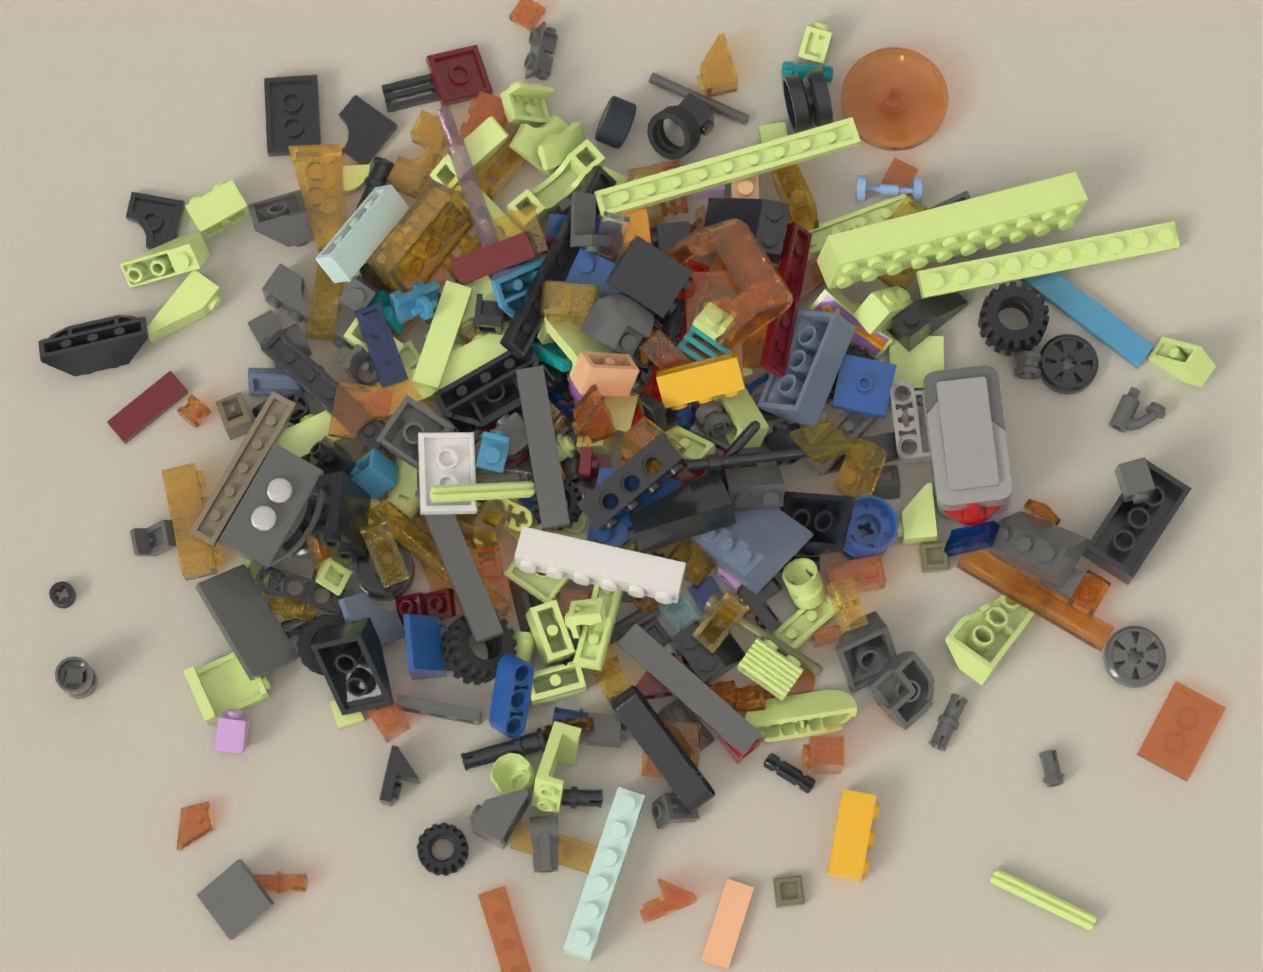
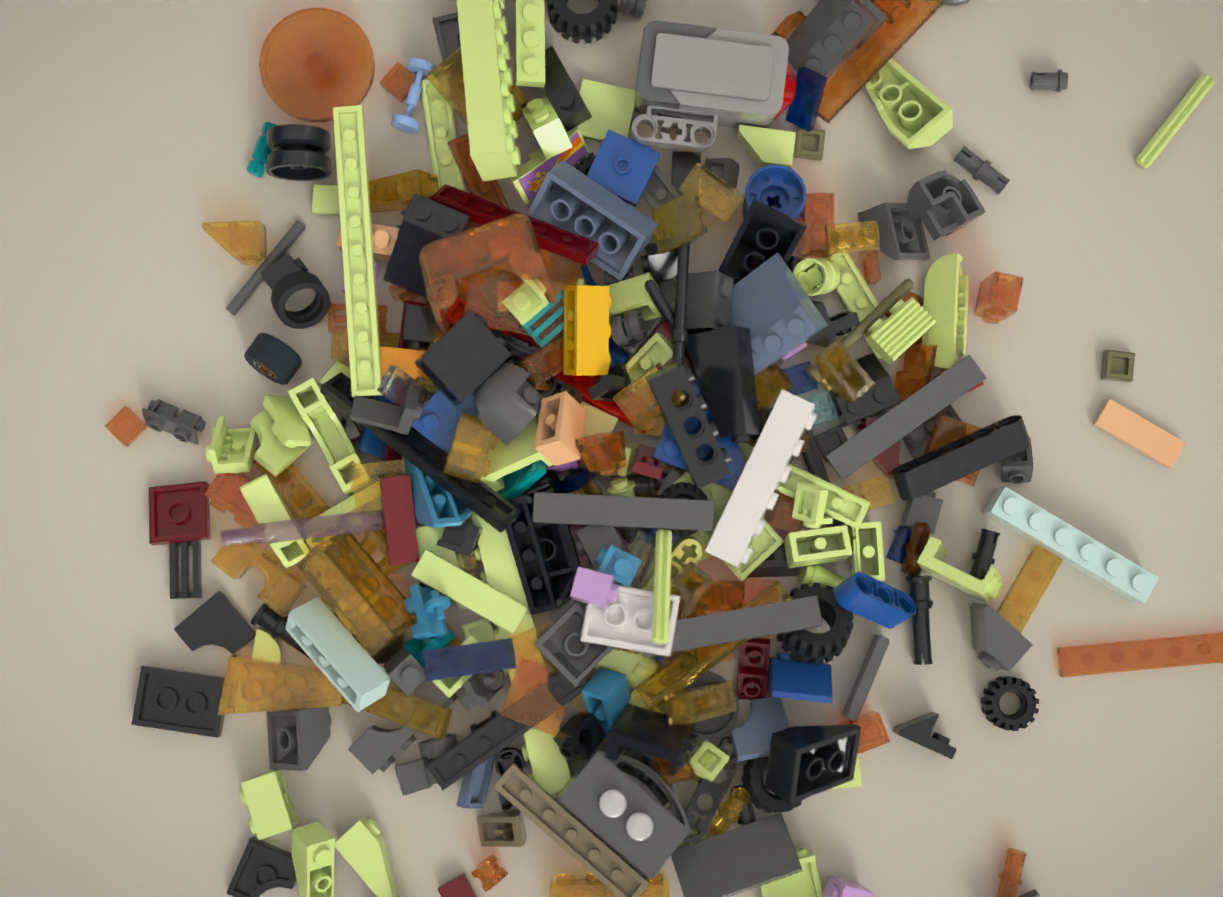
camera: 75 degrees left, 10 degrees up
(467, 431) = (594, 588): none -> lavender brick
(512, 773) = (952, 616): yellowish green hair -> none
(544, 835) = (1022, 597): dark grey piece -> none
(674, 899) = (1110, 481): clear orange slope -> none
(789, 773) = (1000, 337): black axle -> none
(815, 42) = (233, 131): yellowish green bracket -> none
(853, 835) = (1079, 290): yellow brick -> none

